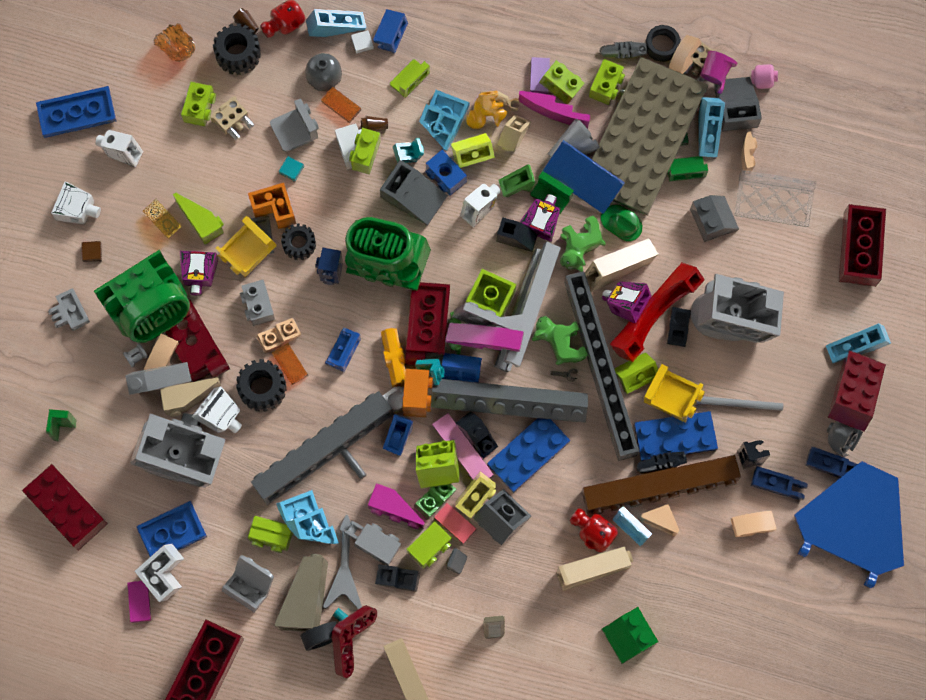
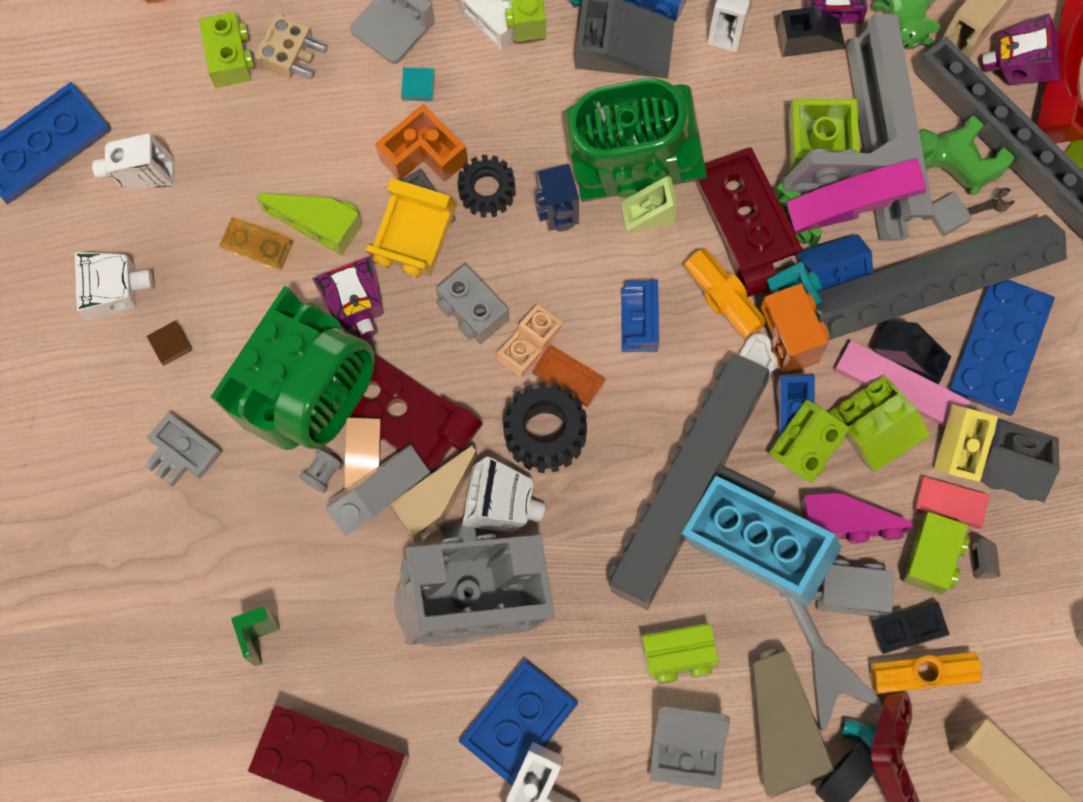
camera: 20 degrees left, 0 degrees up
(306, 520) = (725, 603): medium azure slope -> none
(339, 495) = (762, 540): none -> medium azure brick
(379, 292) = (651, 206): none -> yellowish green slope
(393, 456) = (809, 441): none -> lime brick
(404, 608) = (946, 669): none -> light orange piece
(434, 499) = (900, 481): bright green slope -> none
(539, 369) = (950, 214): none -> light grey tile

